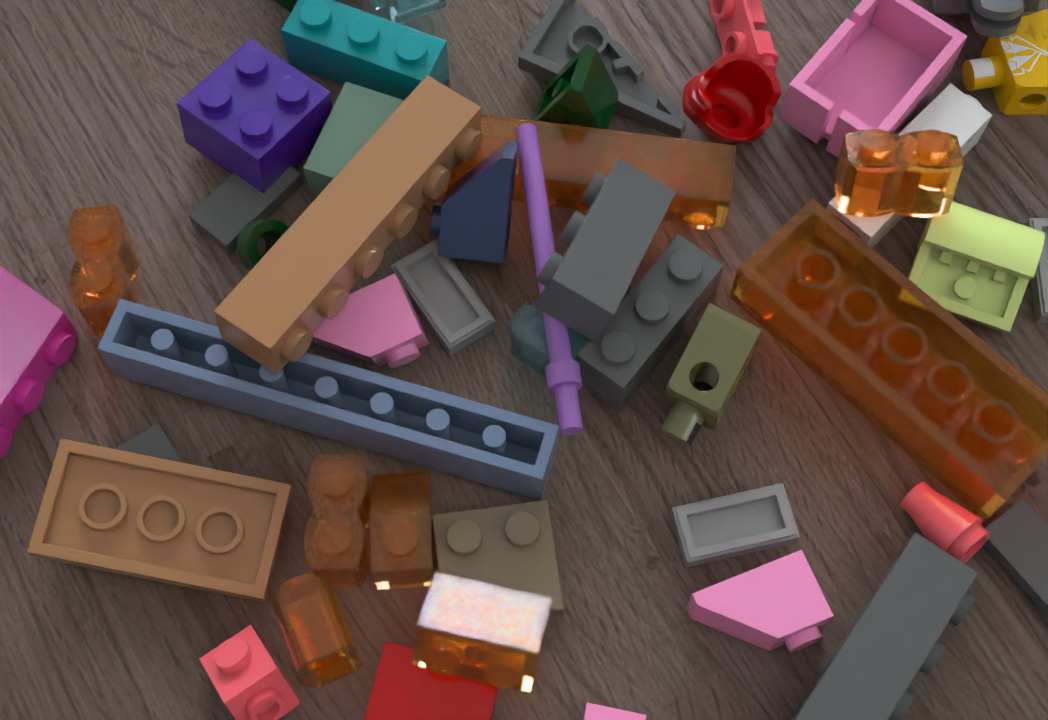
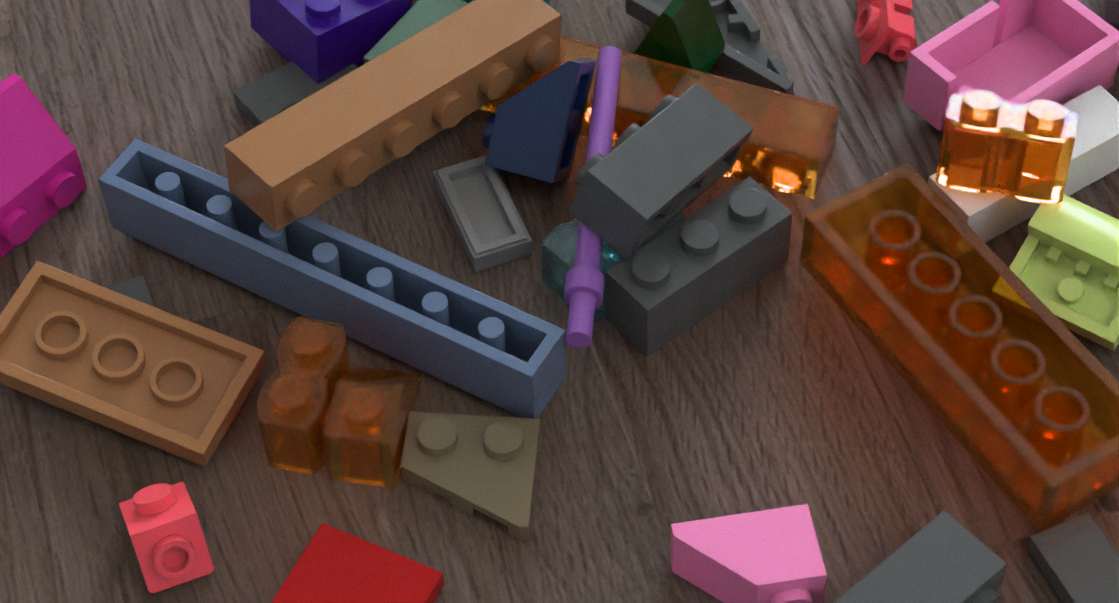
camera: 15 degrees right, 15 degrees down
(103, 264) = (131, 108): clear orange brick -> none
(316, 630) = (248, 486): clear orange brick -> none
(375, 326) = (396, 212): bright pink slope -> none
(481, 632) = (428, 525): brick -> none
(714, 357) = (752, 317): olive torso -> none
(732, 99) = (851, 67): red hair -> none
(734, 525) = (743, 482): light grey tile -> none
(945, 522) = (991, 519): coral cone -> none

